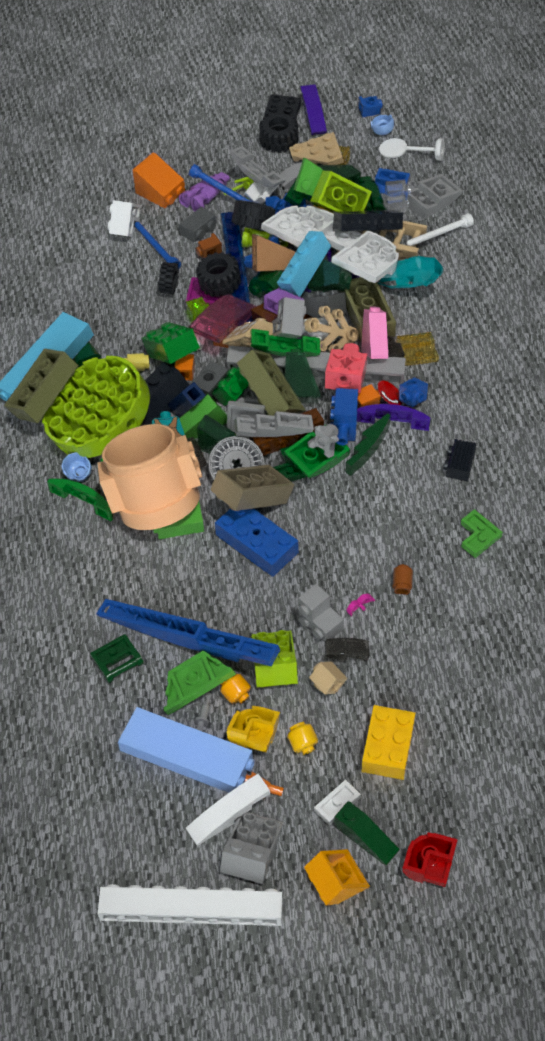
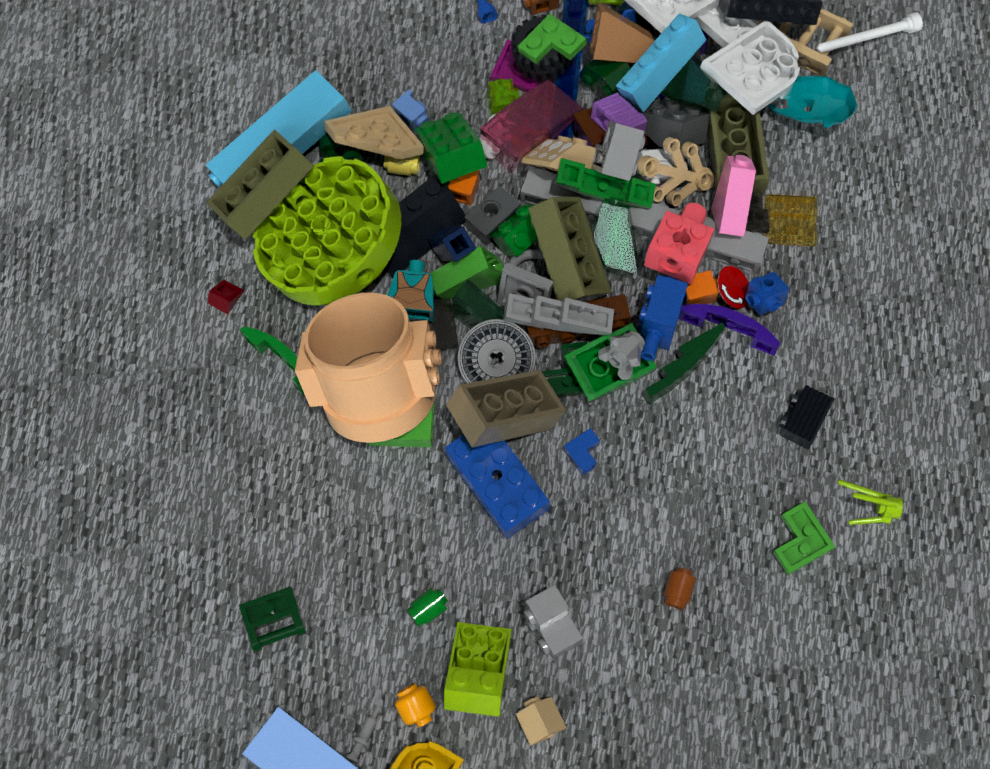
camera: 15 degrees right, 15 degrees up
(28, 467) = (224, 296): none -> dark red slope
(73, 464) = (280, 307): light blue hair -> none
(114, 343) = (376, 132): none -> tan plate
(134, 330) = (410, 111): none -> medium blue brick
(168, 277) = (473, 37): black tyre -> none
(189, 633) = (373, 612): blue slope -> none
(194, 679) = (364, 679): bright green wing -> none
(225, 261) = (551, 34): none -> bright green plate
(229, 623) = (427, 607): none -> green brick
(310, 511) = (579, 450): none -> blue piece
(347, 647) = (578, 678): clear smoke slope -> none
(354, 605) = (612, 609): dark pink piece -> none
(530, 502) = (886, 505): none -> lime plant

